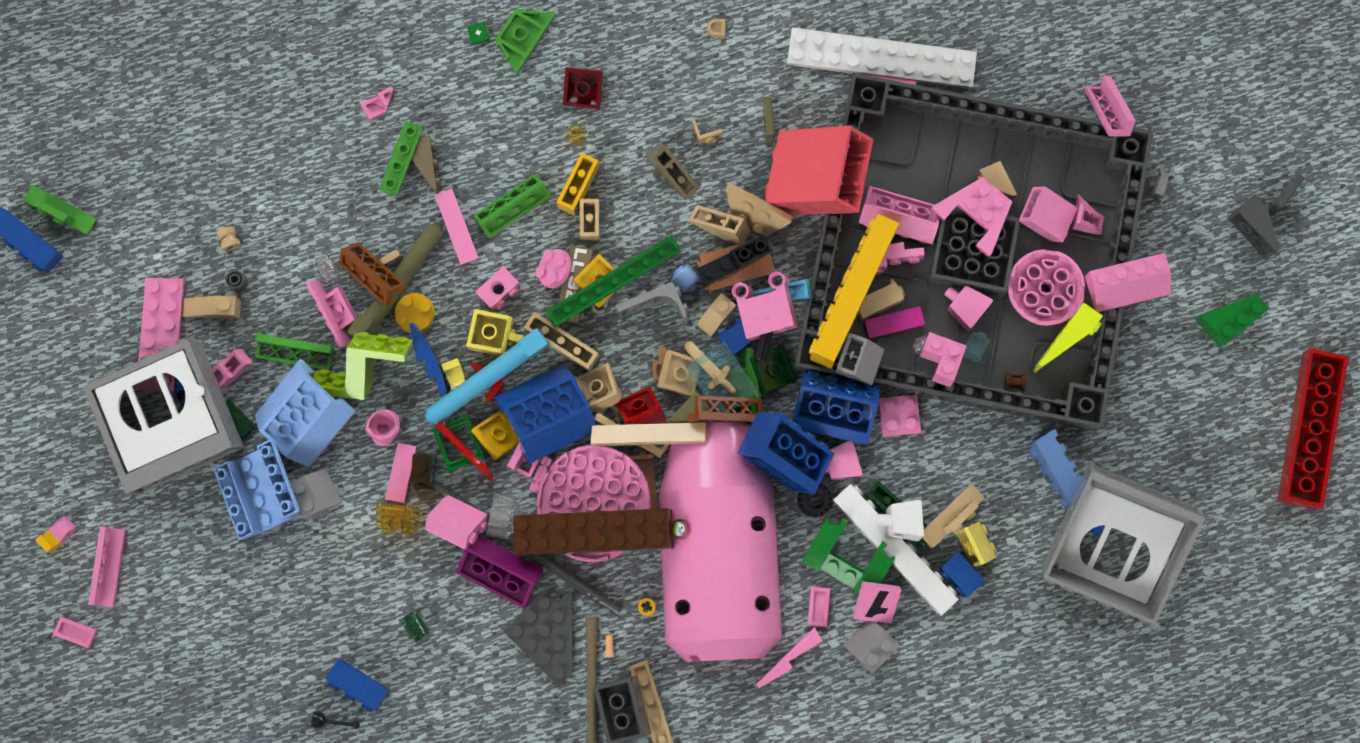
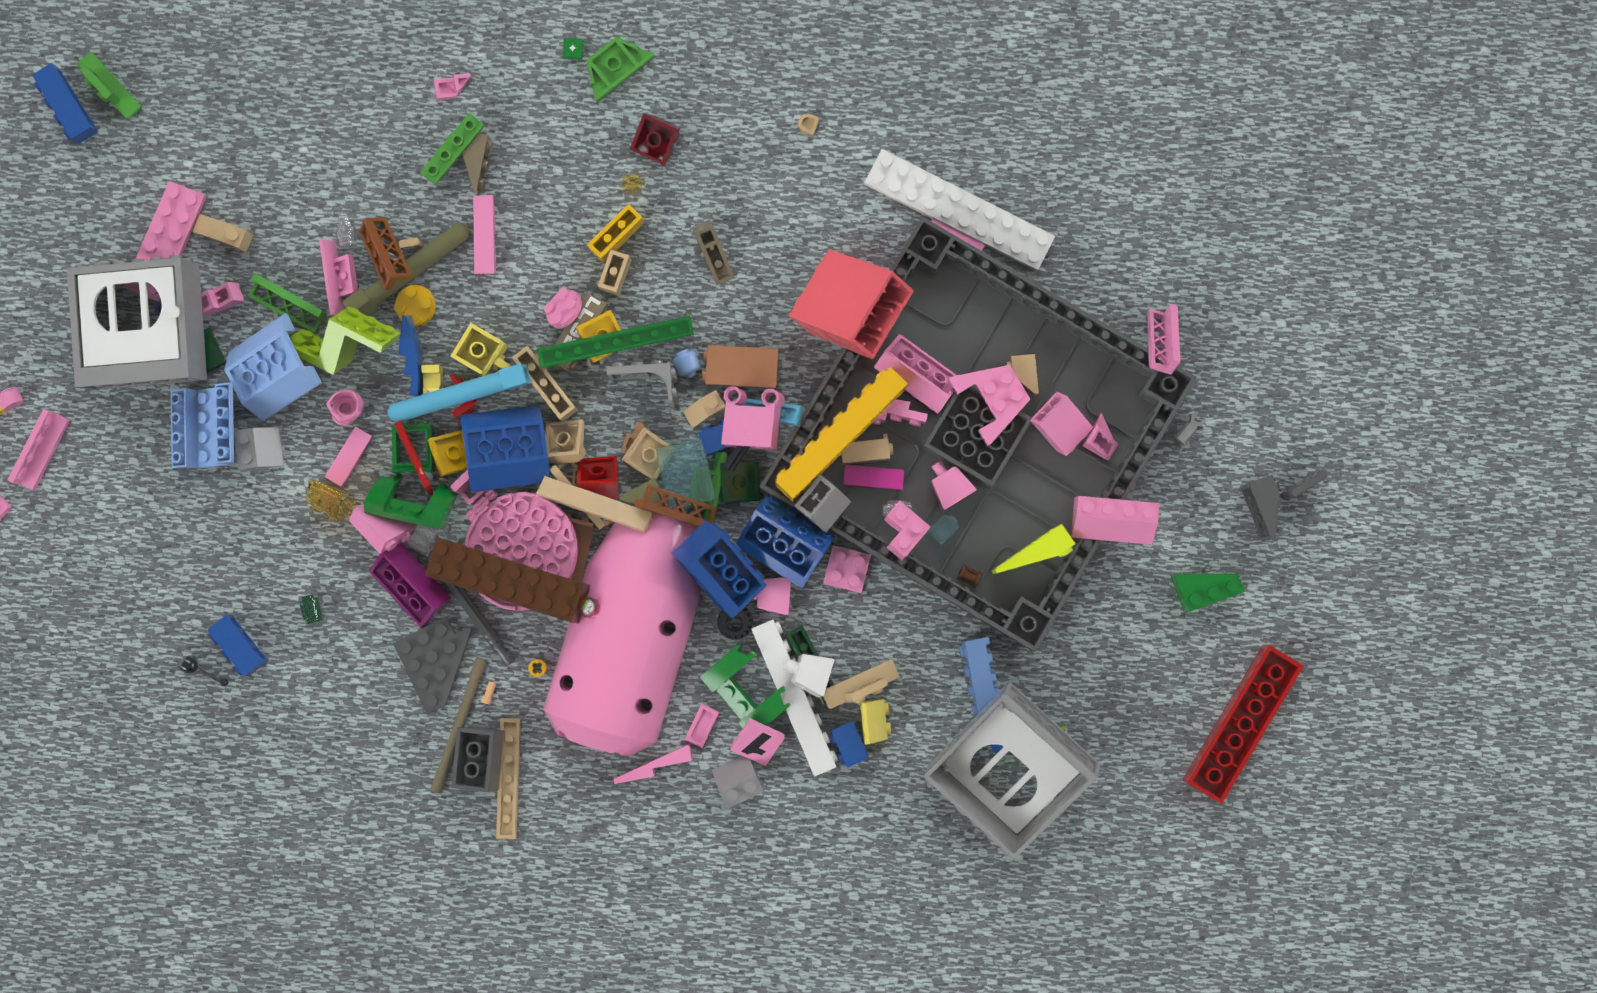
camera: 20 degrees right, 5 degrees up
(228, 238) = (260, 170): tan wheel -> none
(240, 282) = (257, 218): dark grey wheel -> none
(423, 470) = (369, 461): dark brown torso -> none
(450, 502) = (434, 515): none -> green wedge
(487, 290) = (491, 309): bright pink brick -> none
(513, 206) = (546, 234): bright green fence -> none
(707, 138) = (761, 232): tan bracket -> none
(719, 376) = (683, 470): tan sword -> none
(723, 225) = (741, 321): tan slope -> none
(734, 261) = (737, 364): black slope -> none
(759, 214) = (777, 321): tan wing -> none
(768, 121) = (823, 235): olive tile -> none
(1061, 277) = (1053, 495): bright pink brick -> none

